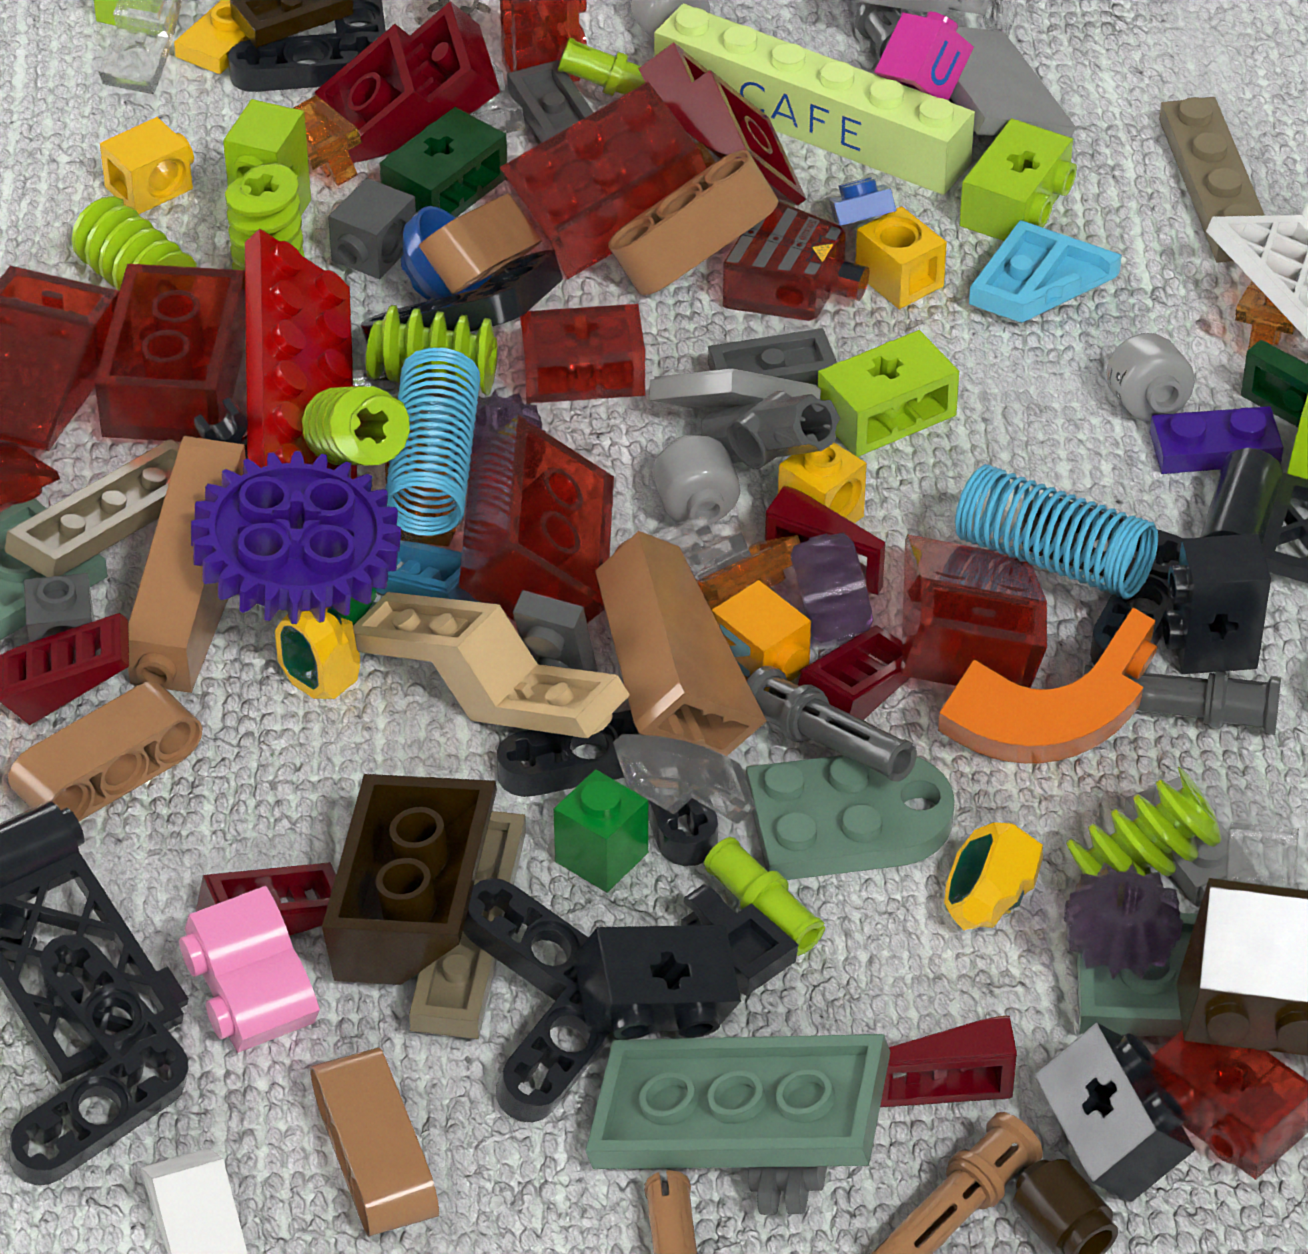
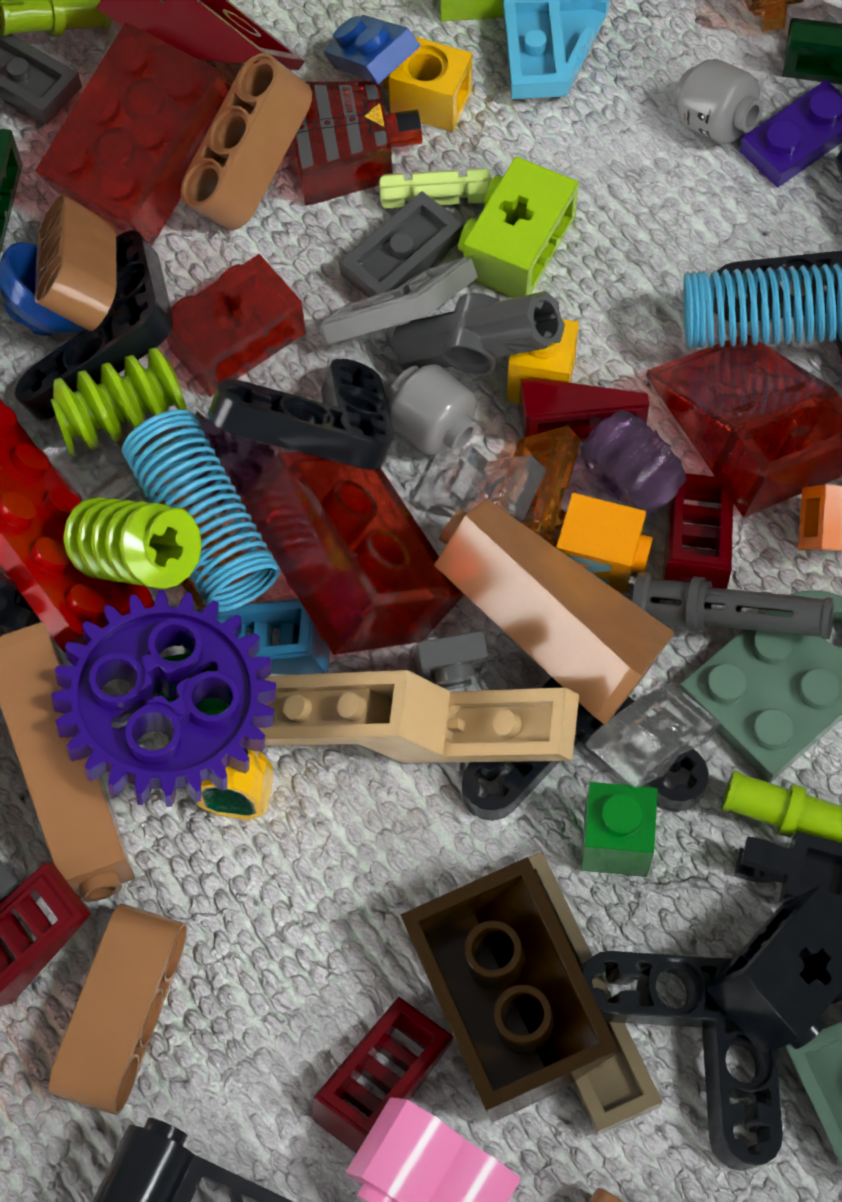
camera: 30 degrees left, 20 degrees up
(605, 448) = (346, 428): none -> black beam
(843, 335) = (442, 186): none -> yellowish green axle

